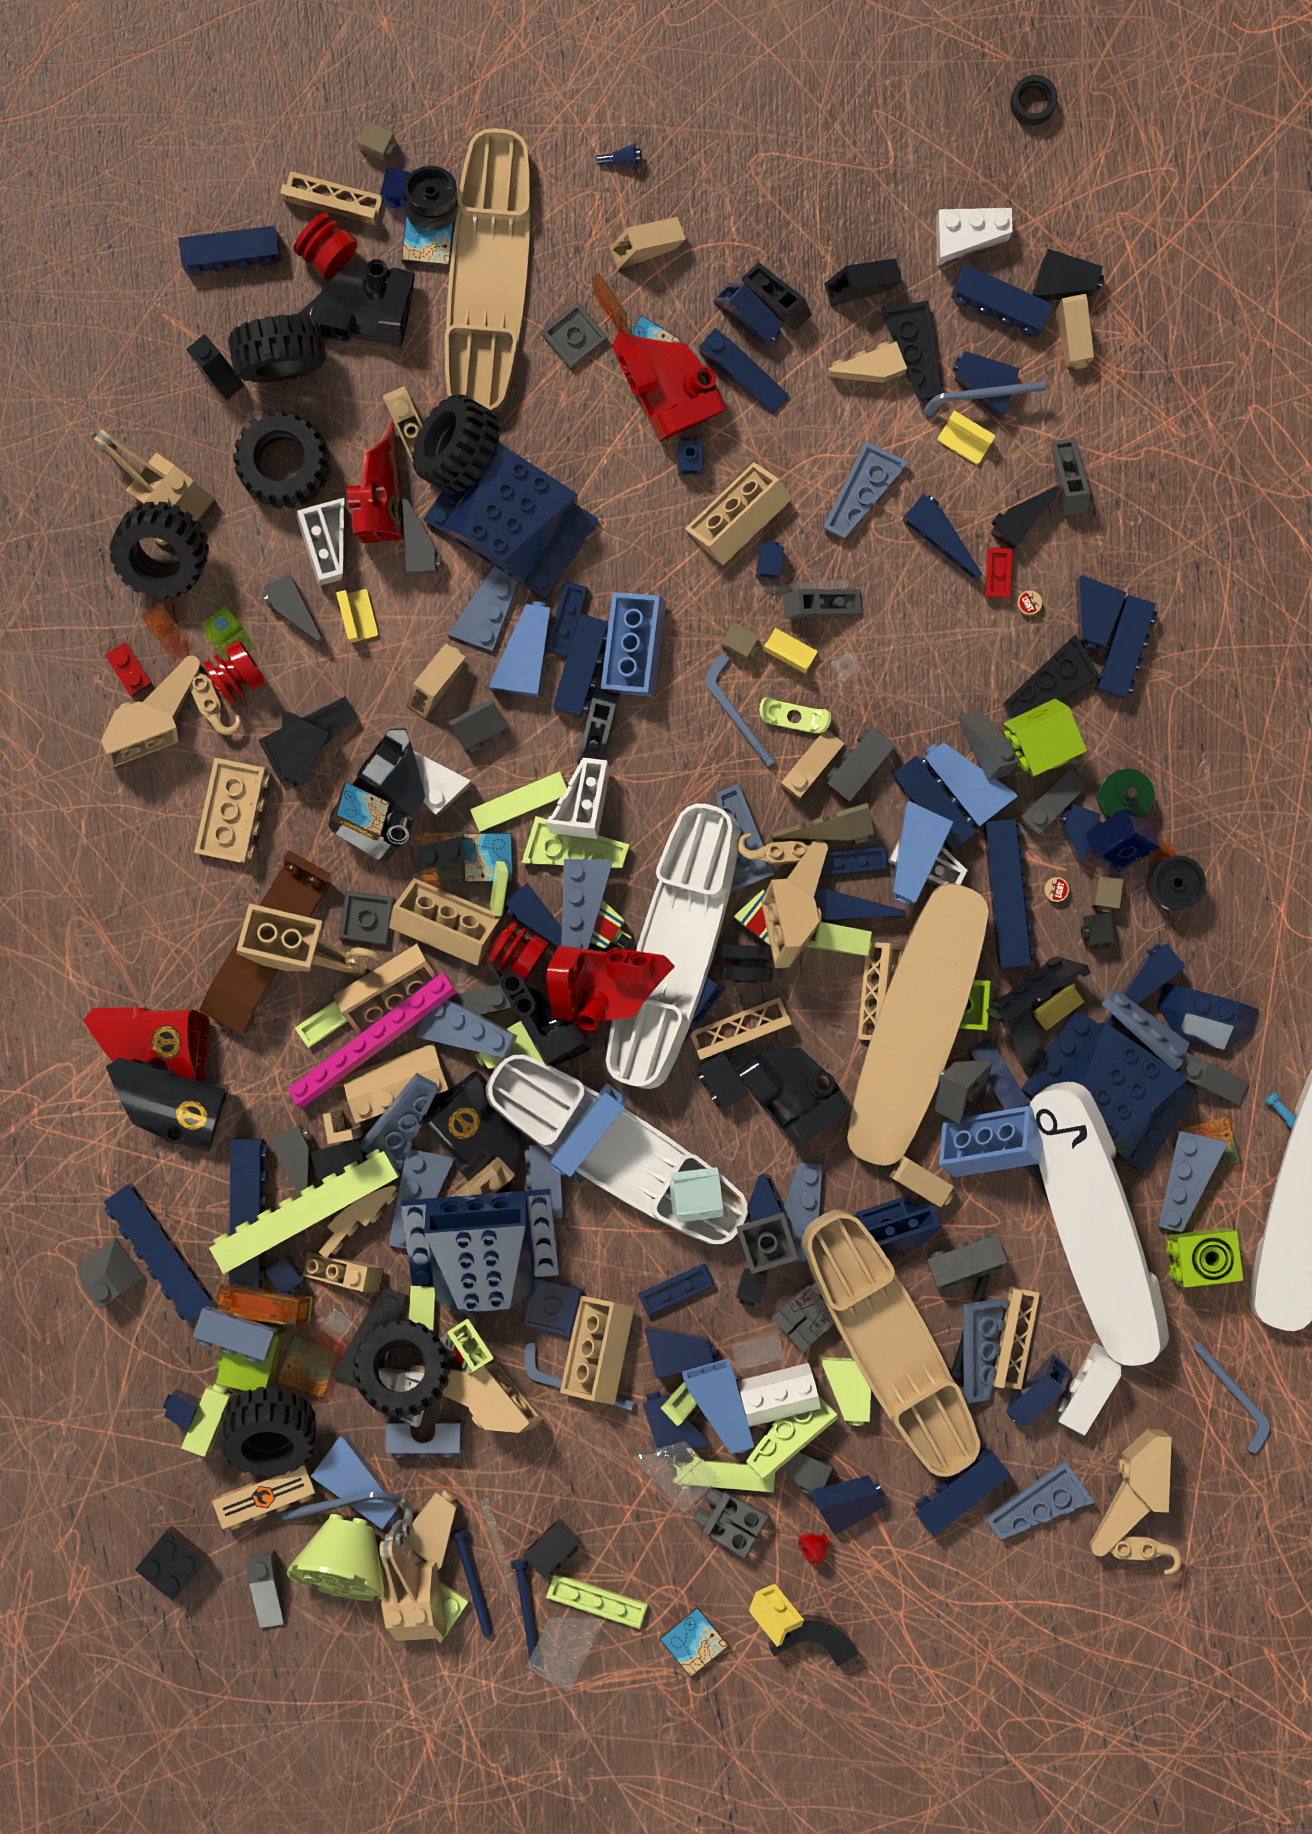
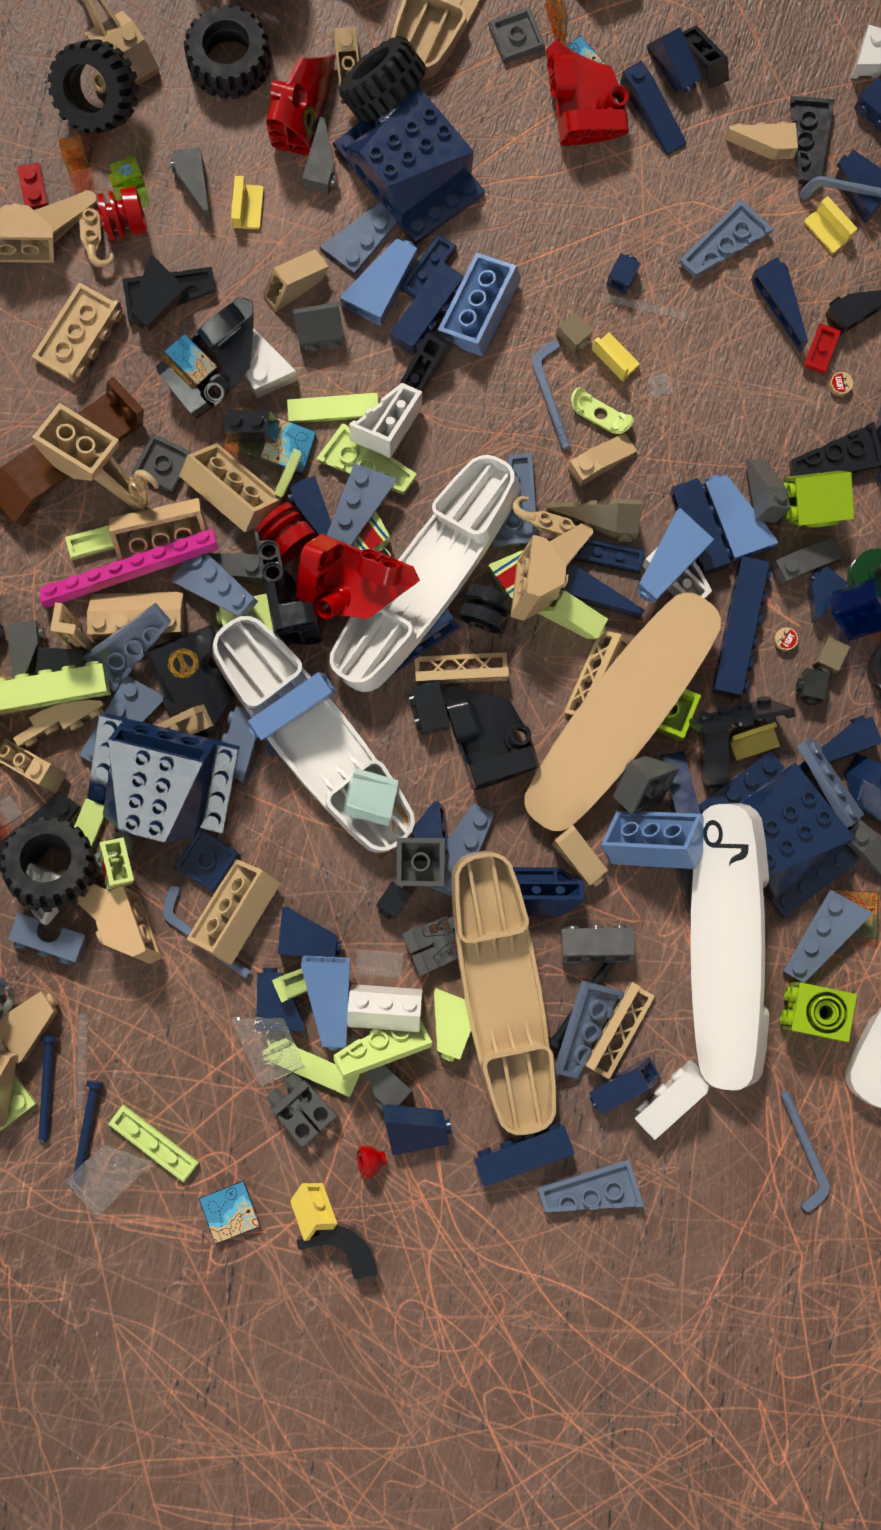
camera: 15 degrees right, 5 degrees down
(323, 537) = (241, 129): white wedge -> none
(551, 1548) = (129, 1078): black brick -> none
(676, 1289) = (324, 882): dark blue tile -> none
(690, 456) = (582, 164): dark blue brick -> none
(739, 513) = (610, 225): tan slope -> none
(821, 603) = (656, 323): dark grey slope -> none
(859, 764) = (645, 471): dark grey brick -> none
(862, 281) = (782, 65): black slope -> none
(1144, 1488) = (695, 1206): tan slope -> none

